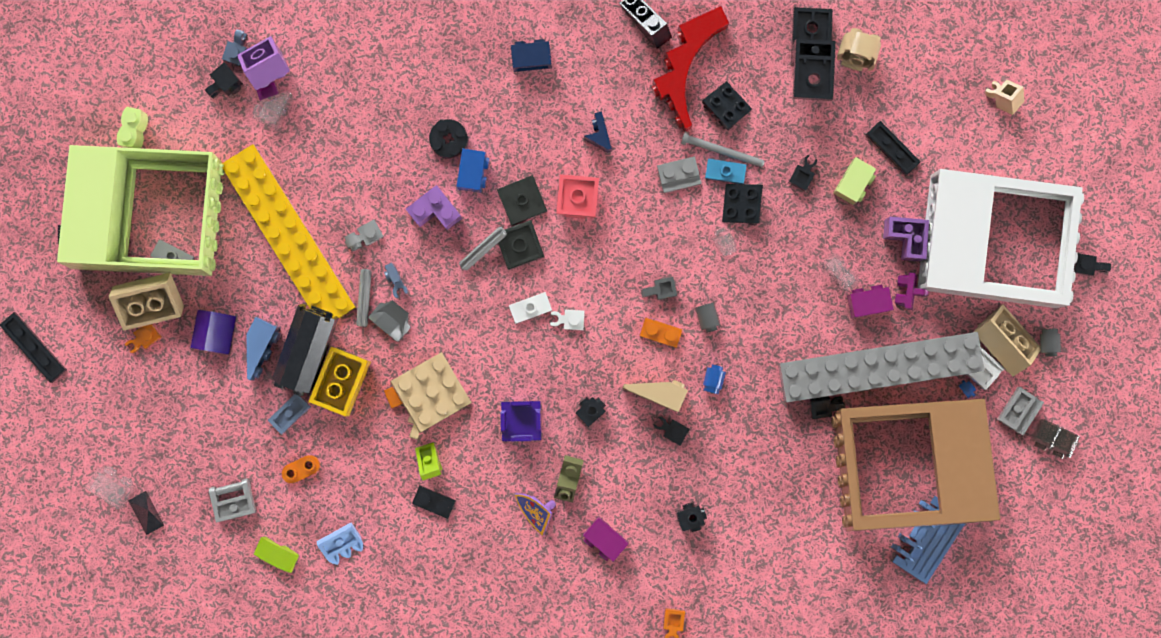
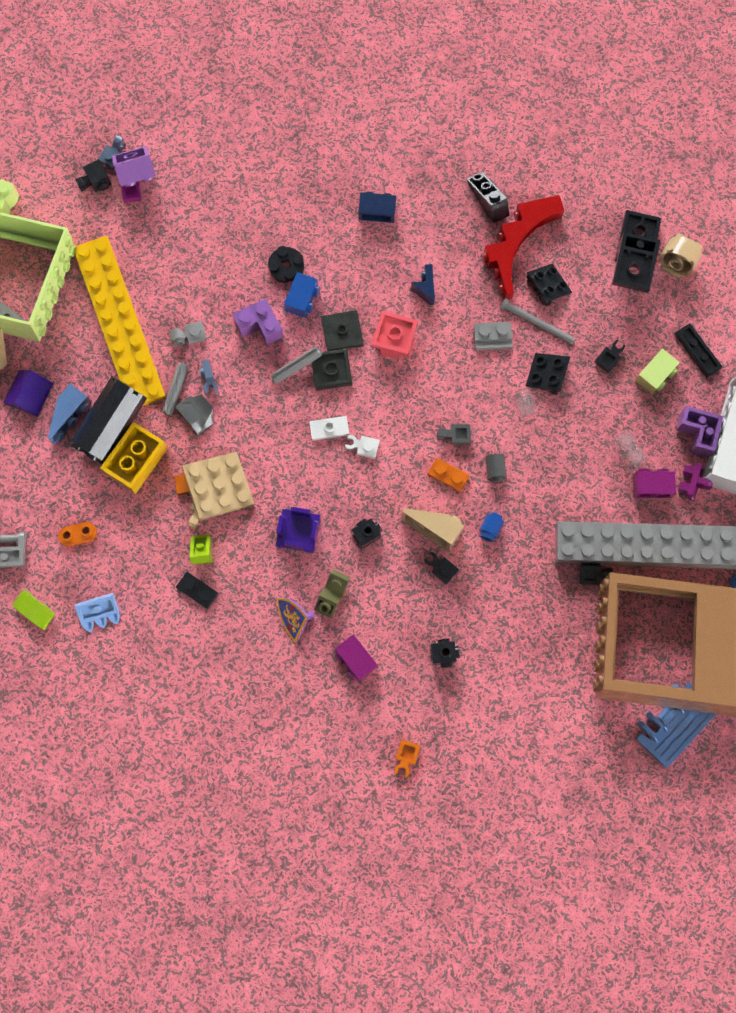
camera: 10 degrees right, 10 degrees down
(273, 110) = (132, 209): clear slope -> none
(289, 413) = (79, 479): sand blue plate -> none
(725, 171) = (537, 341): dark azure plate -> none

